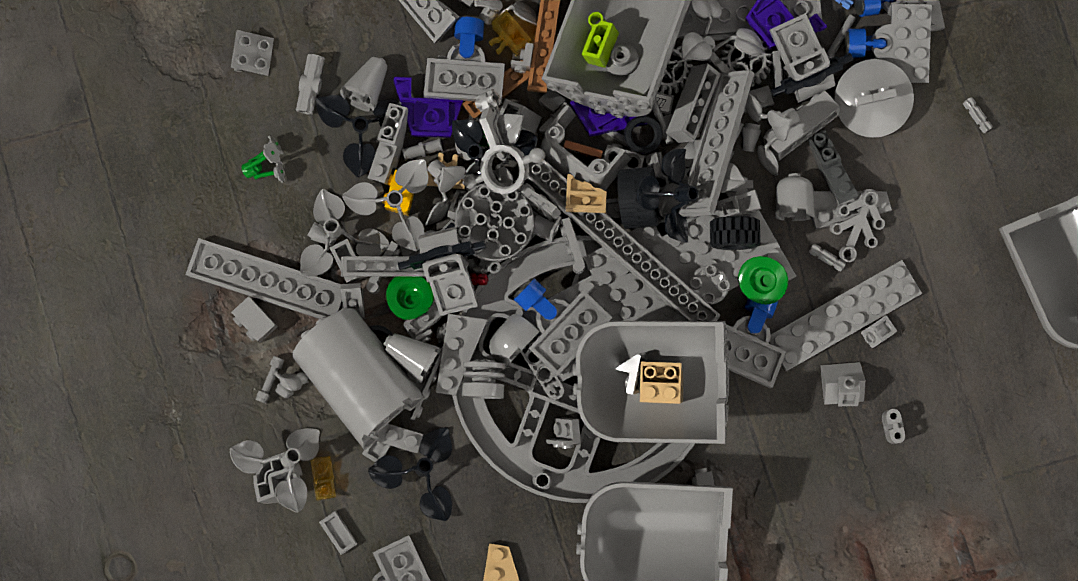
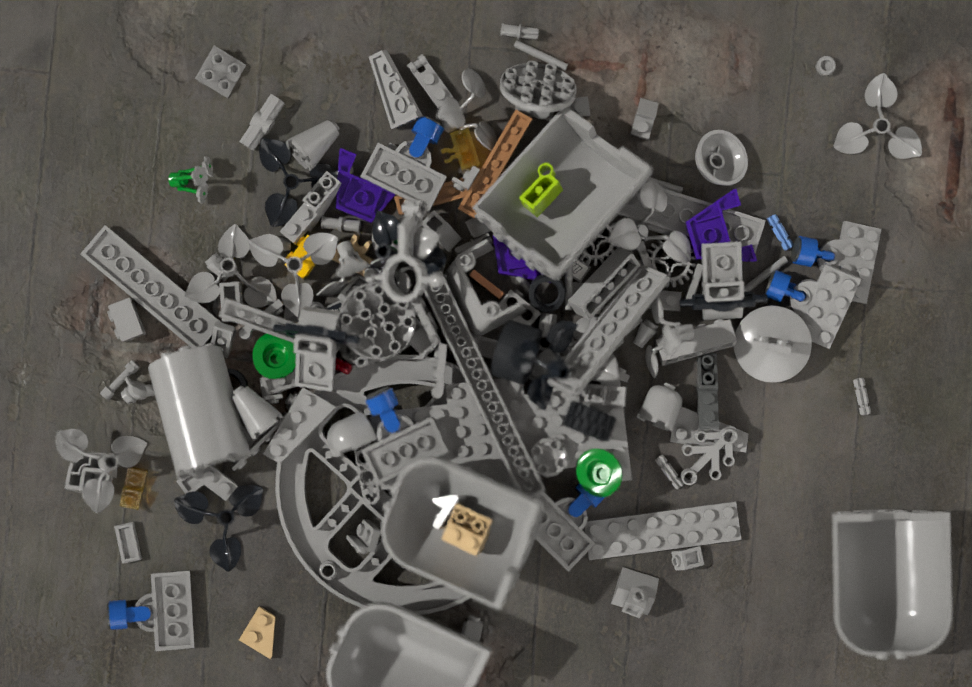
camera: 20 degrees right, 5 degrees up
(483, 379) = (309, 461): light grey wheel -> none
(584, 197) = (466, 332): tan wing -> none
(627, 64) = (558, 222): light grey piece -> none
(893, 426) = (663, 649): light grey piece -> none

